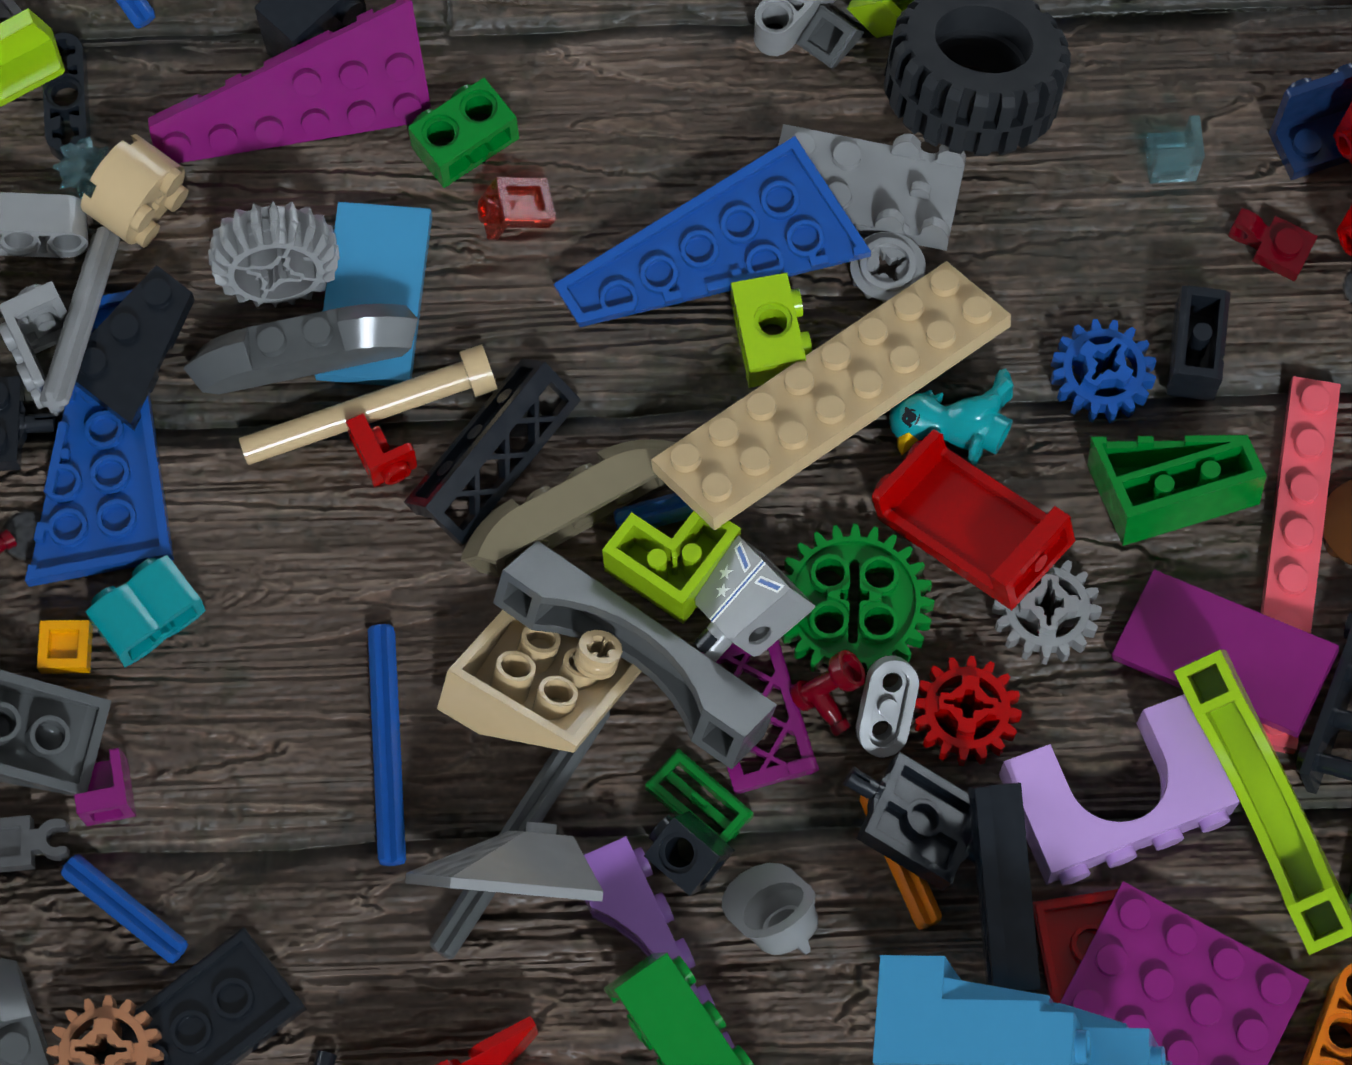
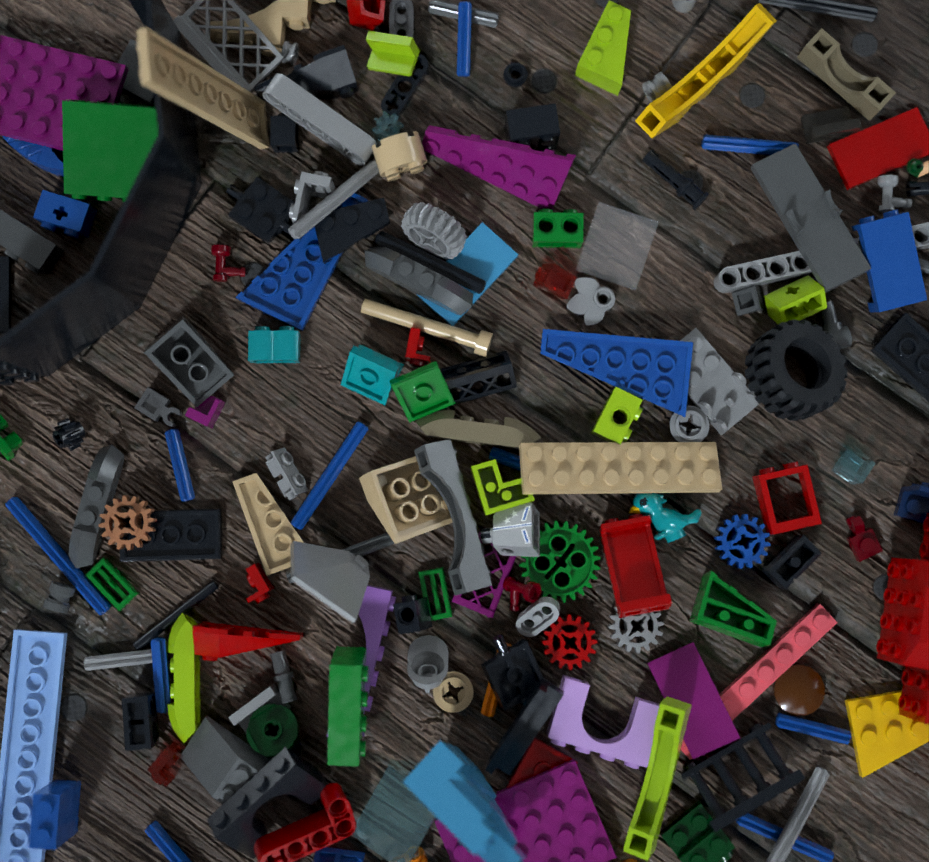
camera: 35 degrees right, 15 degrees up
(64, 646) = (232, 337): light orange plate -> none
(331, 796) = (281, 463): none -> light grey hinge
(335, 538) = (370, 373): none -> teal bracket
(347, 894) = (267, 524): none -> tan wing
(387, 290) = (432, 262): none -> black axle
(391, 987) = (258, 579): none -> red bracket
(438, 500) = (422, 391): none -> green tile
(572, 97) = (617, 246): none -> clear piece
(591, 203) = (587, 301): none -> light grey plate
(594, 666) = (445, 503): tan bush -> none
(872, 922) = (465, 694): none -> tan gear
(1095, 294) = (765, 504): none -> red window

